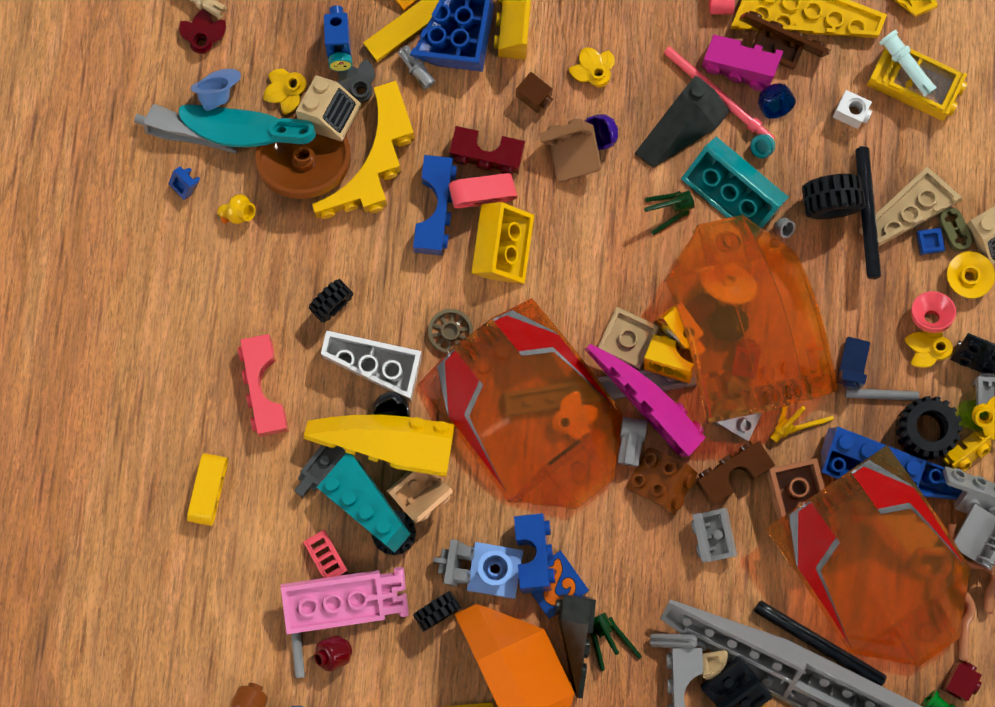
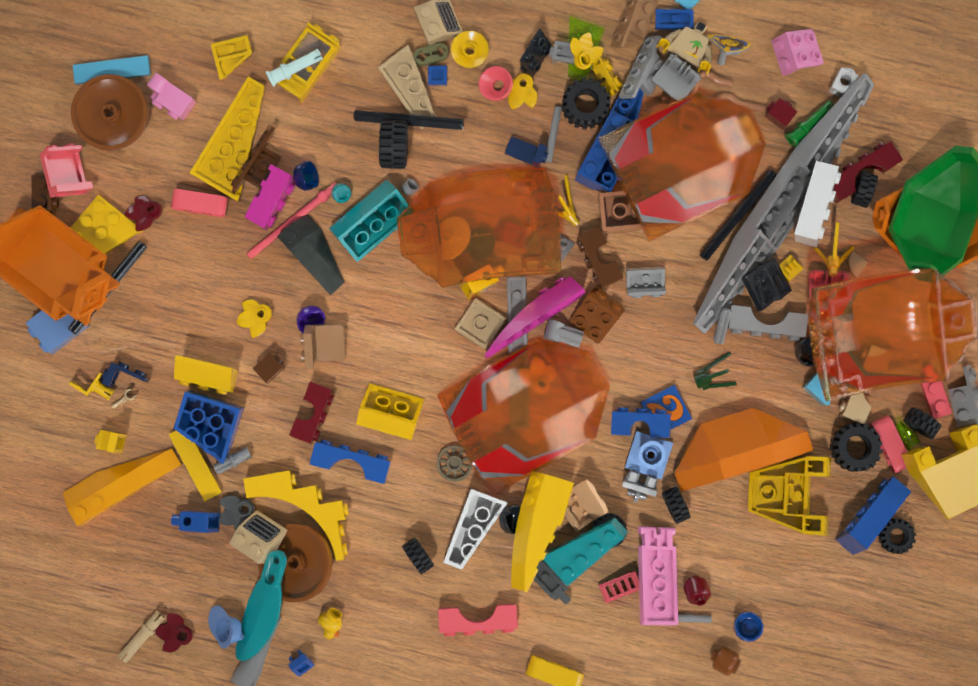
camera: 80 degrees left, 5 degrees up
(281, 91) = (236, 573): yellow plate -> none
(340, 61) = (219, 522): tile -> none
(482, 190) = (345, 421): coral beam -> none
(575, 621) = (700, 397): pearl dark grey wedge -> none
(666, 361) = (504, 297): yellow arch -> none
(680, 202) = (377, 265): dark green plant -> none
(714, 663) = (744, 298): tan tile -> none
(844, 115) = (322, 125): white brick -> none

